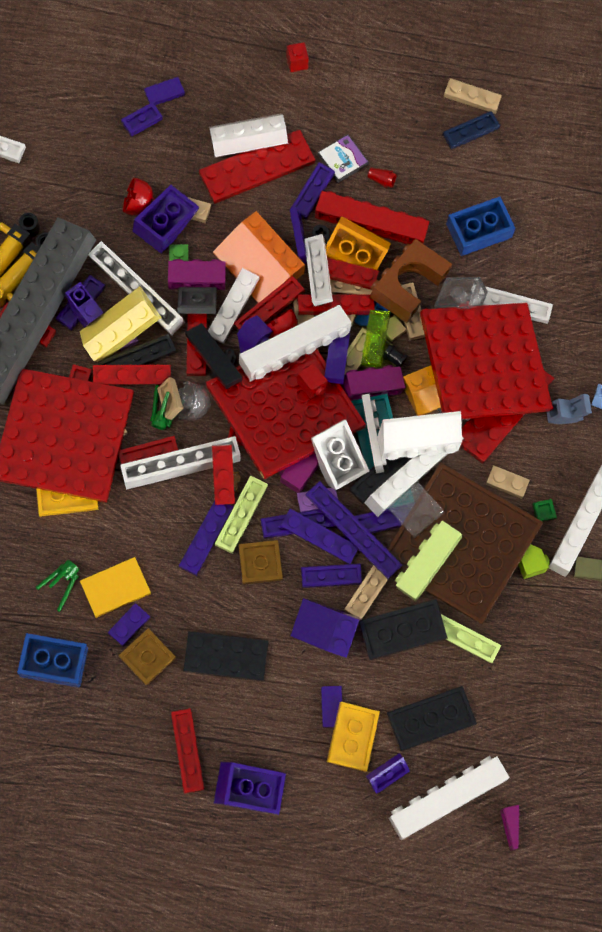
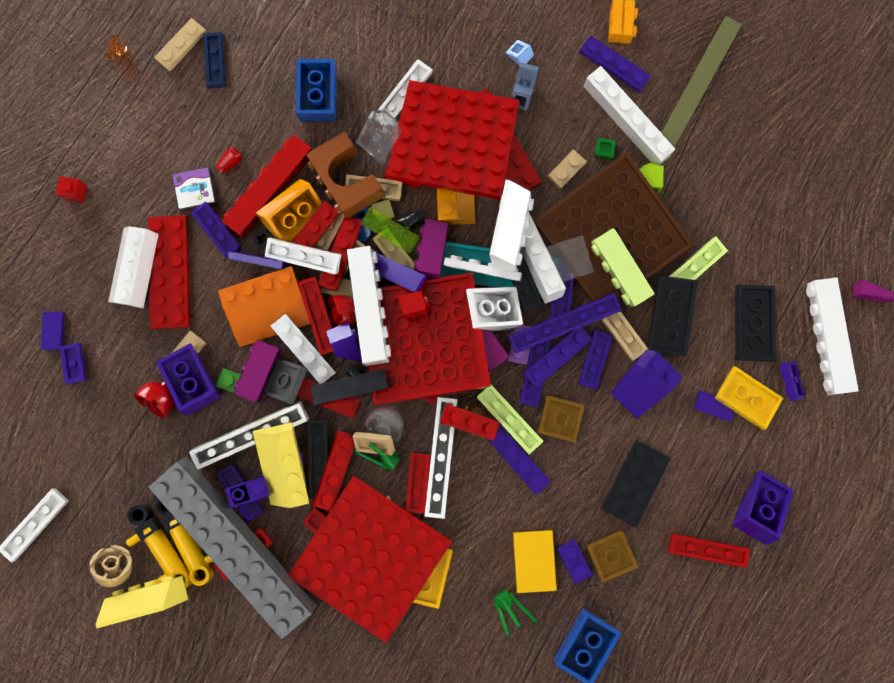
camera: 65 degrees left, 10 degrees up
(443, 43) = (115, 48): none -> clear orange tile

